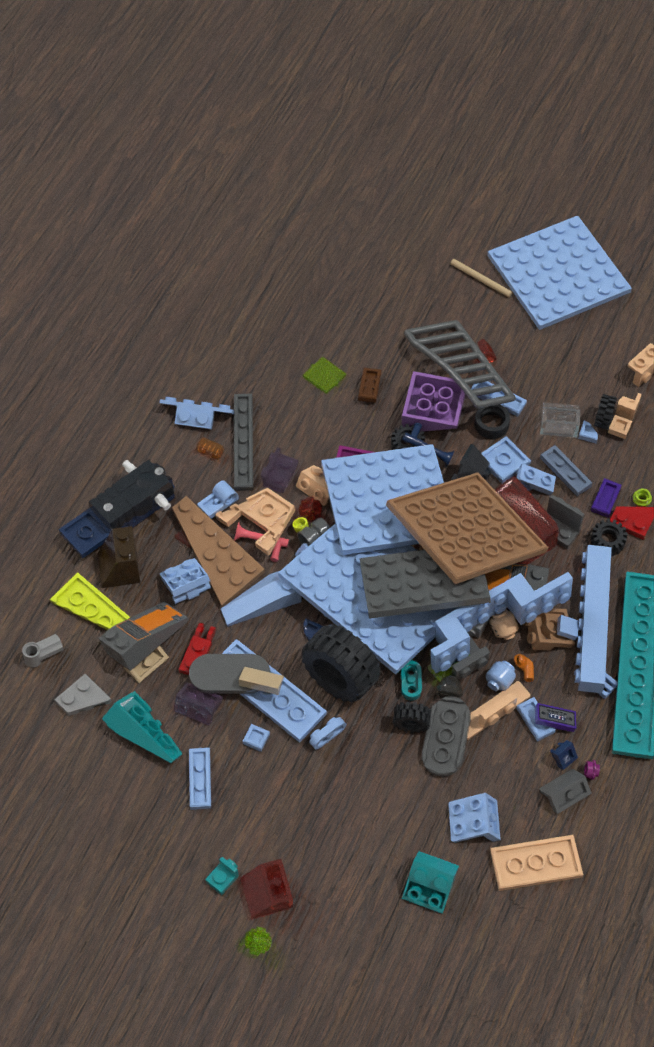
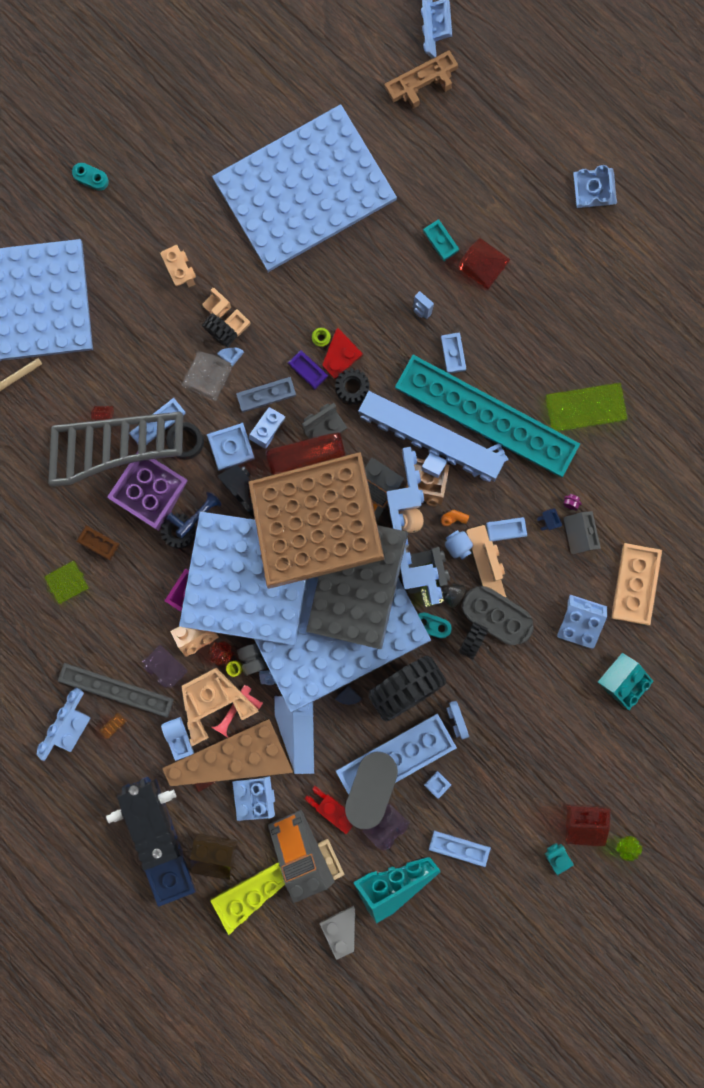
camera: 70 degrees left, 25 degrees up
(42, 650) = (280, 955): light grey piece -> none
(261, 680) = (392, 764): tan slope -> none
(555, 717) = (514, 512): tile -> none

